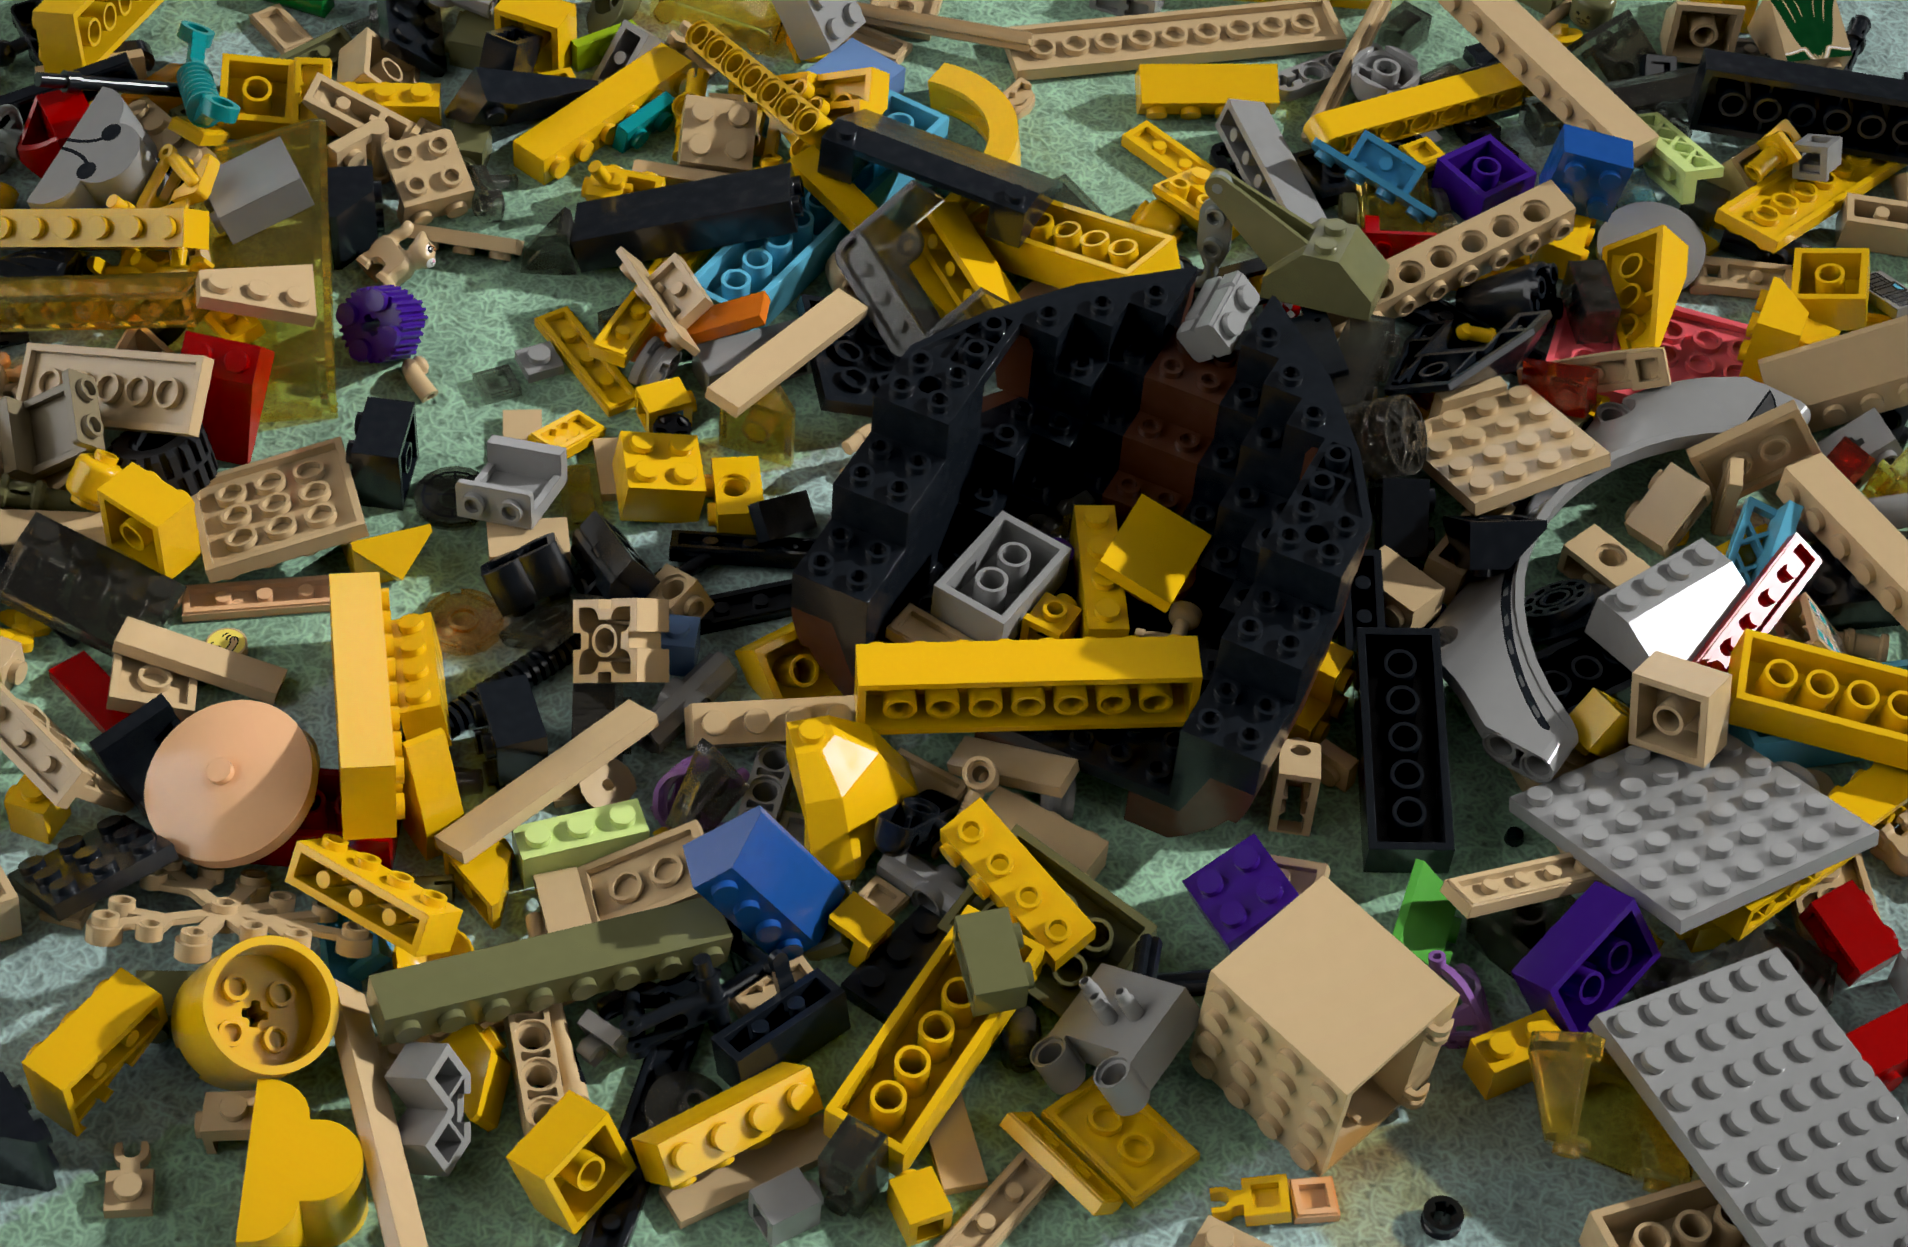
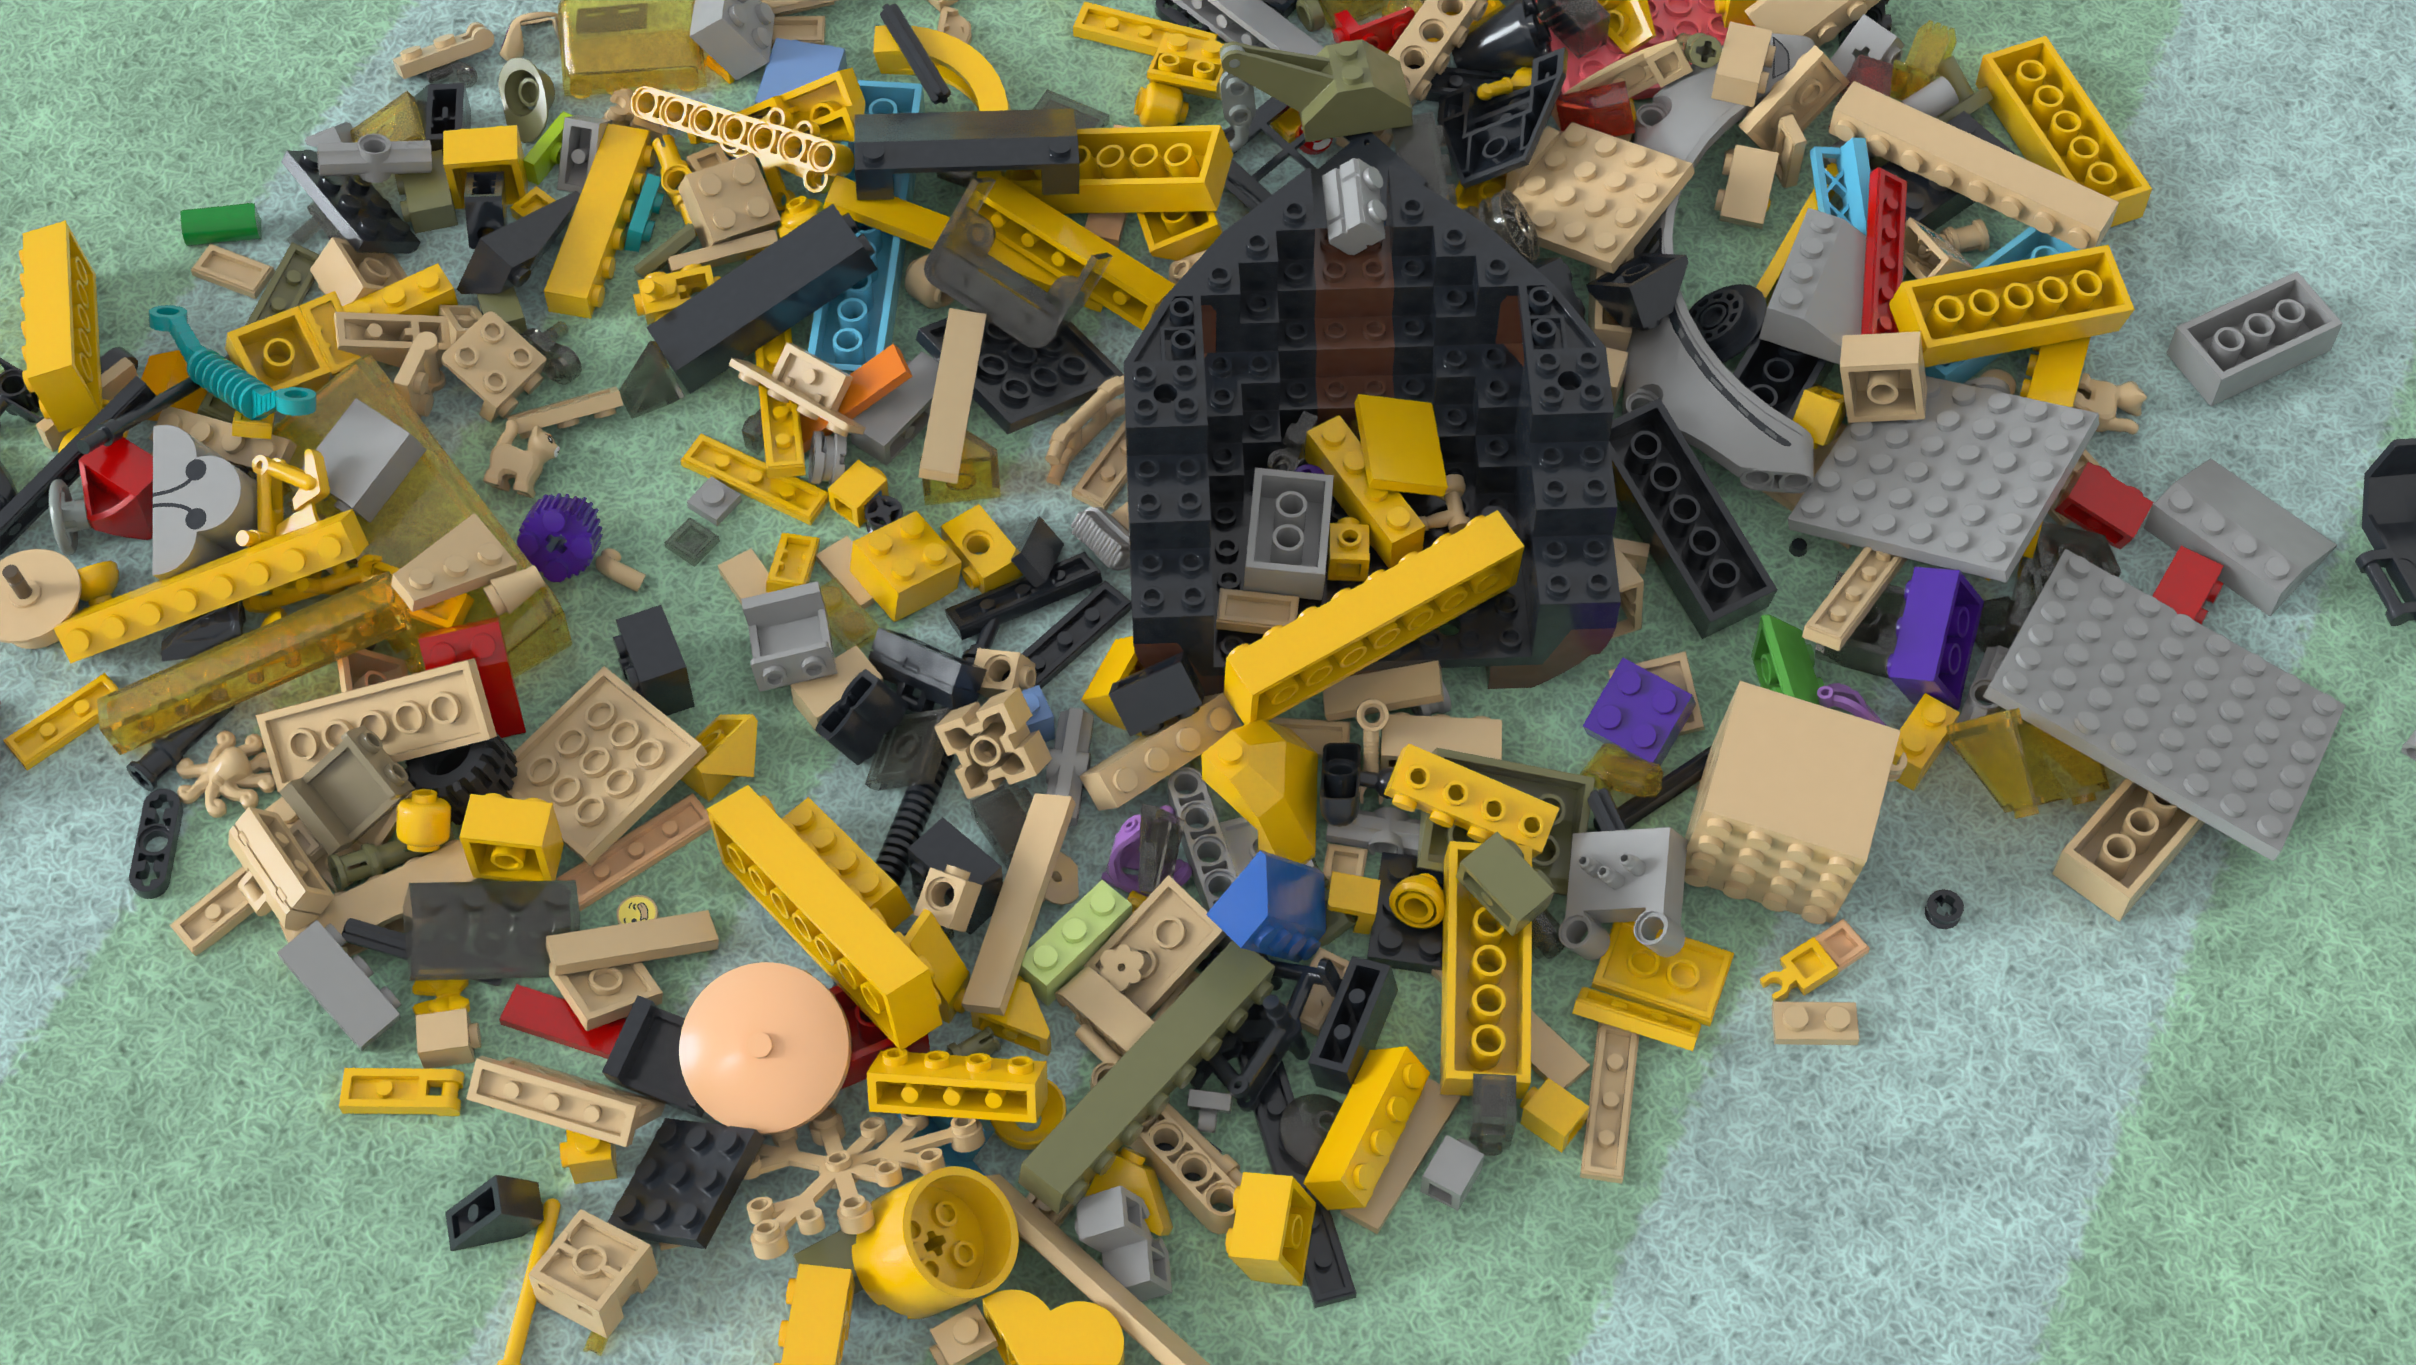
camera: 25 degrees left, 10 degrees up
(297, 334) = (512, 590): none -> tan cone
(353, 212) = (452, 425): black slope -> none
(437, 498) = (726, 674): clear smoke tile -> none
(461, 632) = (834, 798): clear orange tile -> none
(477, 736) = (959, 911): none -> tan brick
(603, 880) = (1114, 960): none -> tan plant
(657, 151) = (673, 246): none -> olive tile
(792, 664) = (1157, 695): none -> black brick
(910, 949) = (1418, 901): none -> yellow brick
(958, 91) = (915, 54): none -> black axle
(1193, 940) = (1624, 774): none -> clear yellow piece
(1599, 559) = (1724, 261): tan brick -> none
(1684, 366) = (1700, 49): none -> olive pin
(1718, 394) = (1742, 64): none -> tan brick

